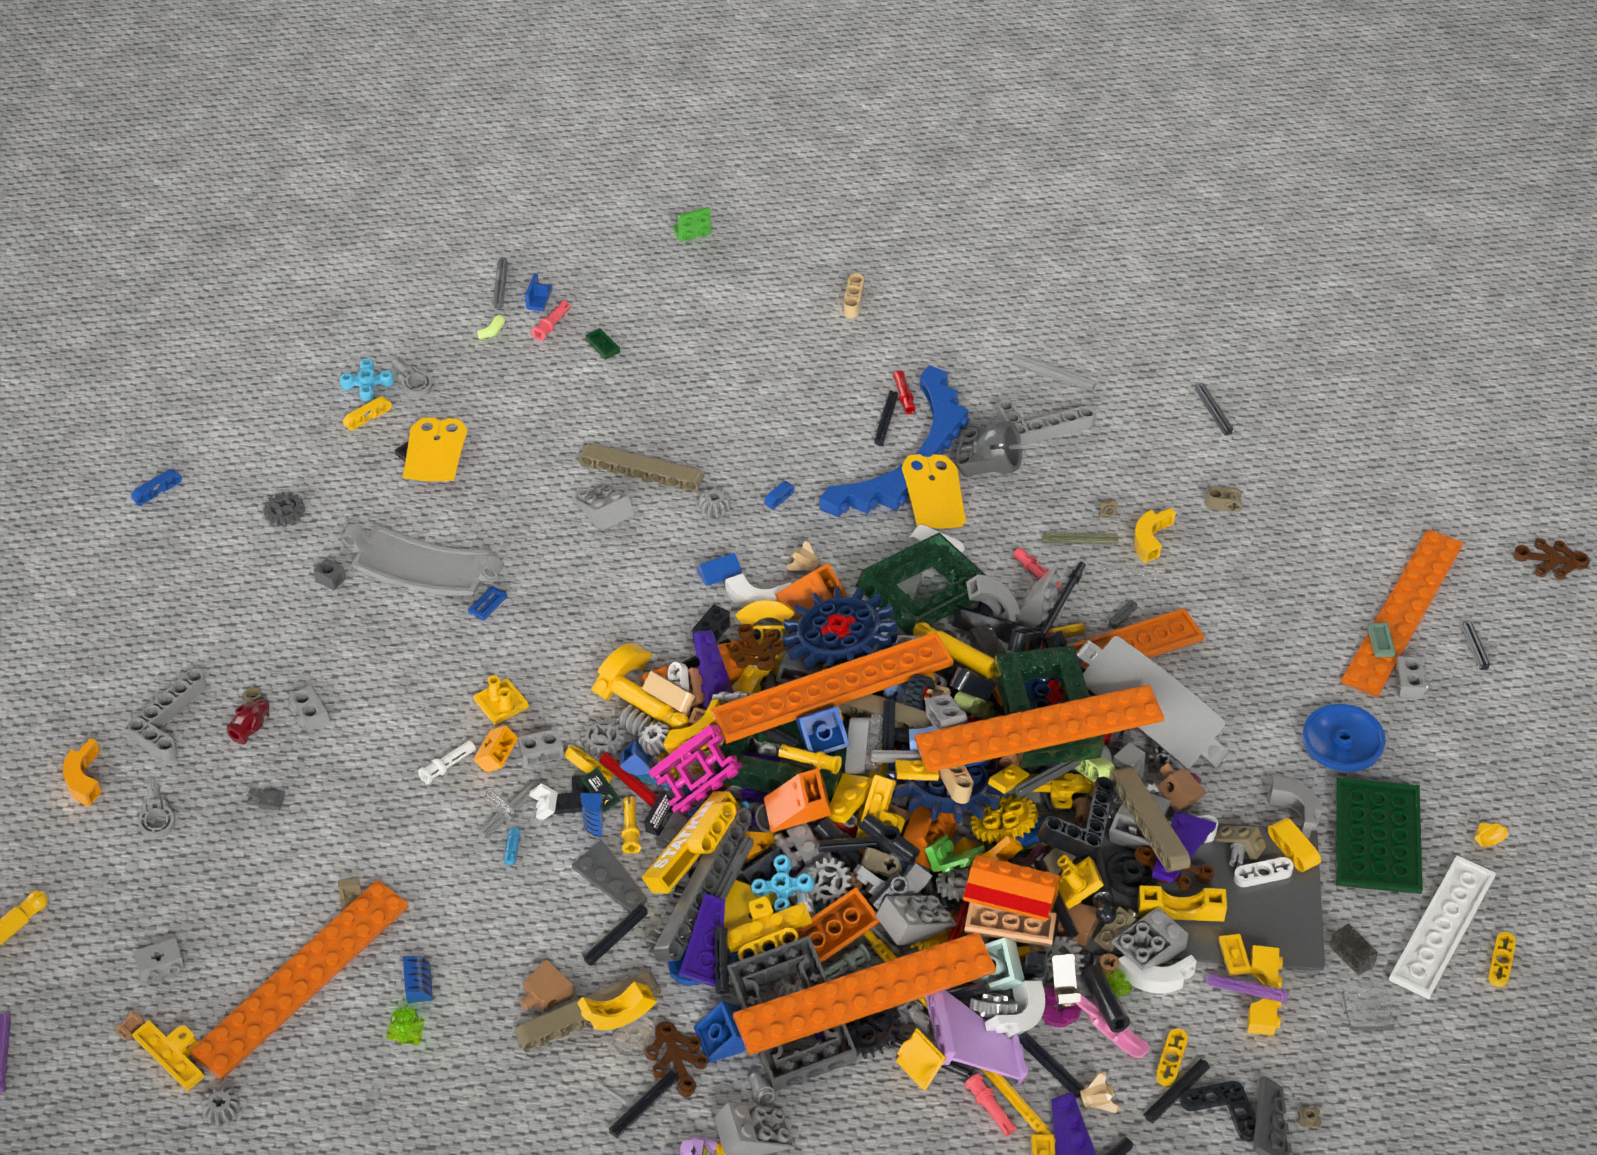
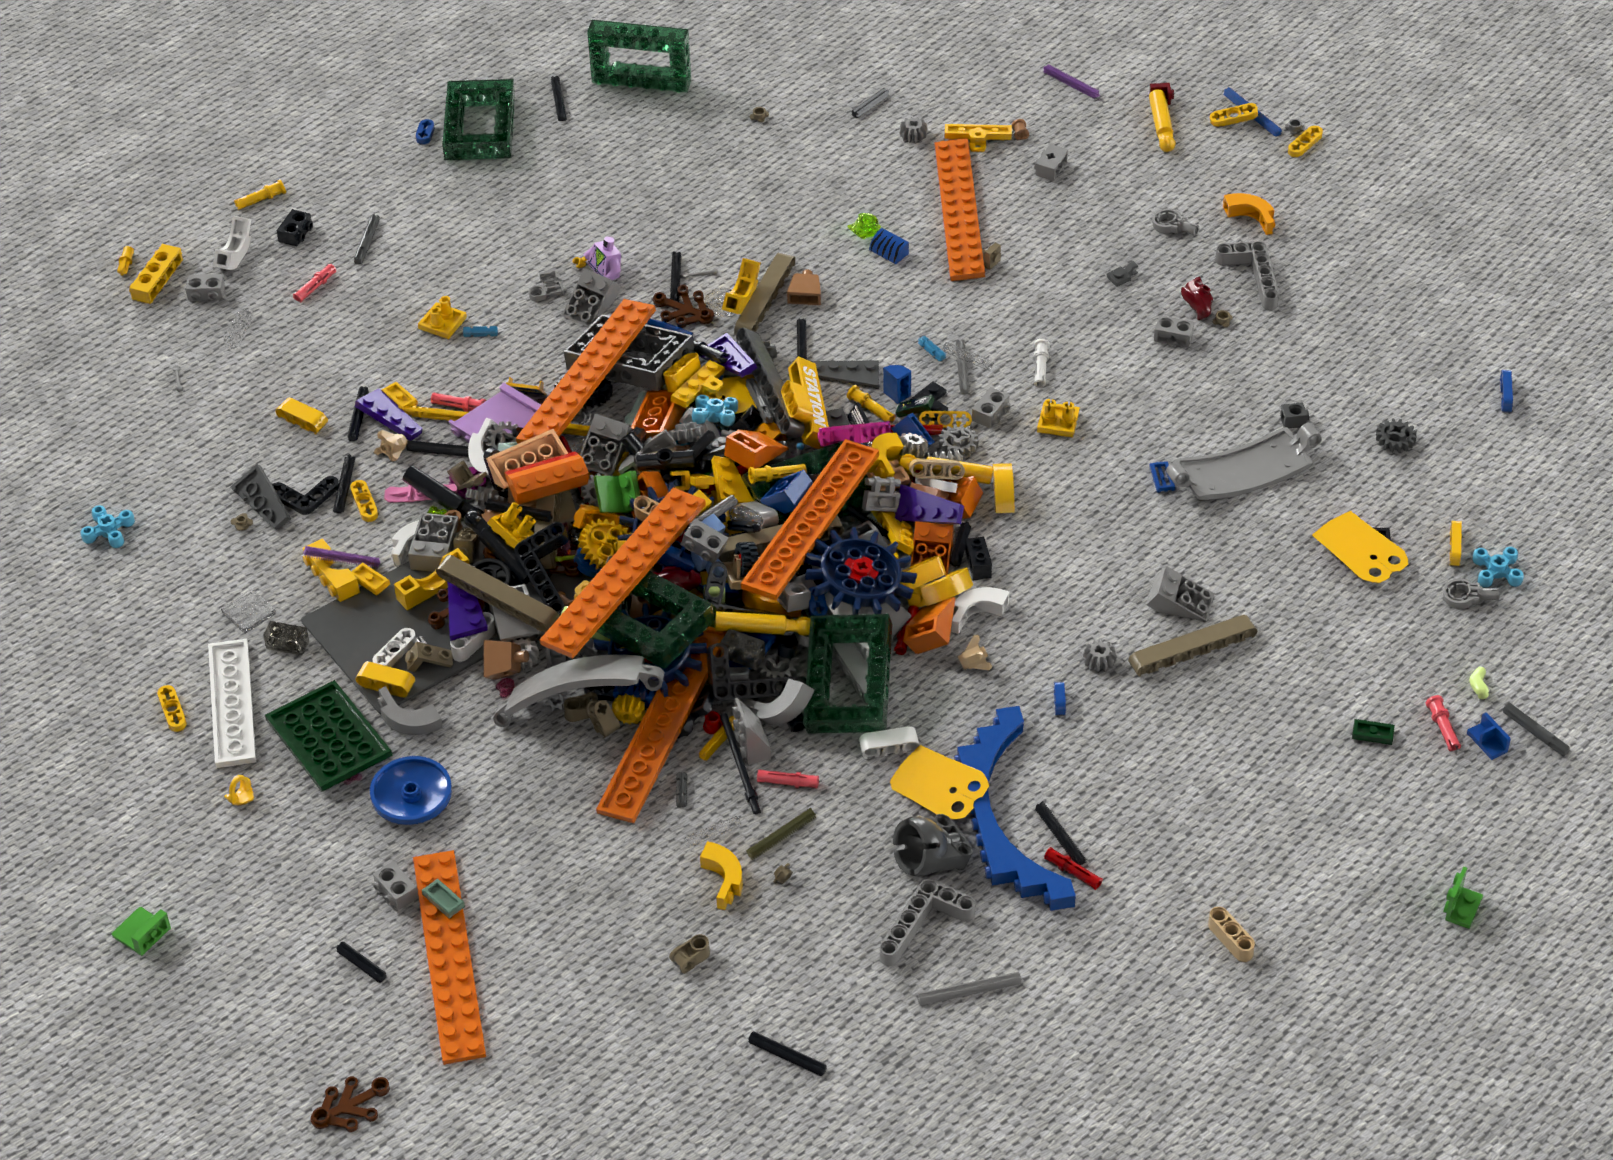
camera: 140 degrees right, 0 degrees up
(495, 748) = (1016, 383): light orange brick -> none
(546, 801) = (944, 380): white bracket -> none
(719, 569) = (1030, 608): blue brick -> none
(765, 661) = (889, 520): reddish brown plant -> none

